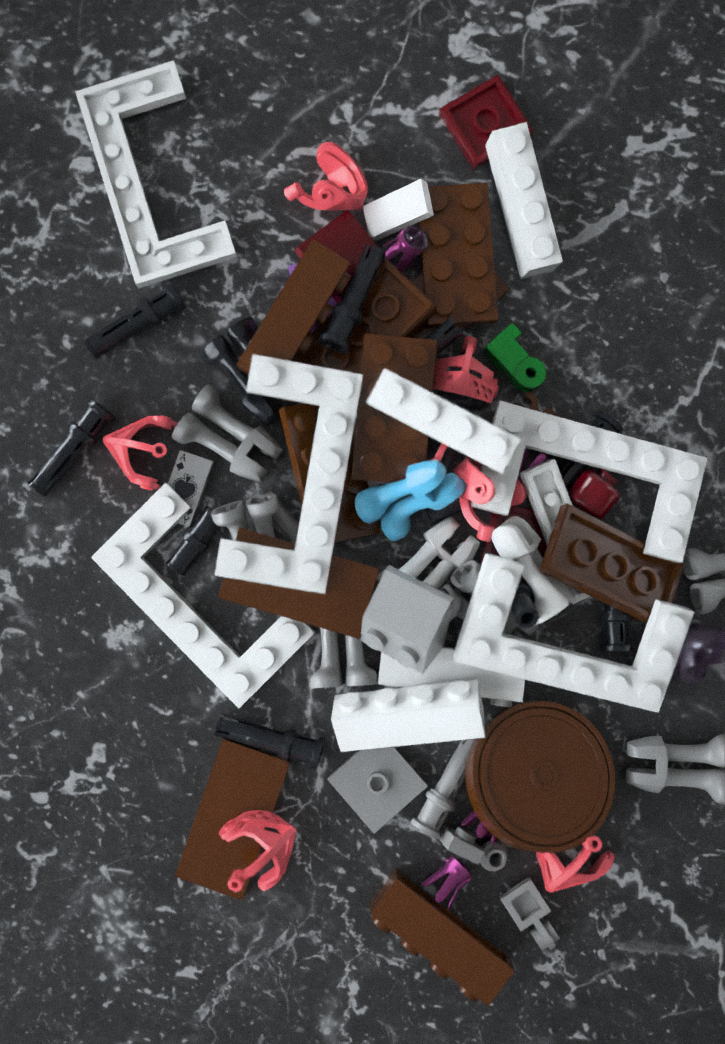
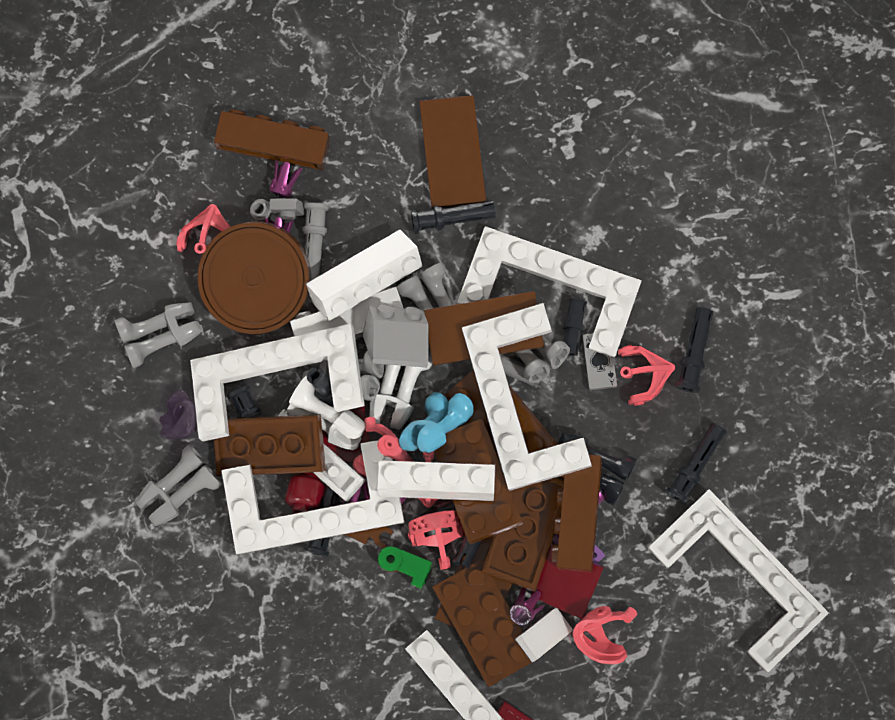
camera: 150 degrees right, 5 degrees down
(193, 430) = (566, 395): light grey piece -> none
(277, 846) = (414, 147): coral helmet -> none
(347, 313) = (541, 532): black pin -> none
(377, 784) = (363, 220): light grey plate -> none
(526, 908) = (222, 187): light grey plate -> none

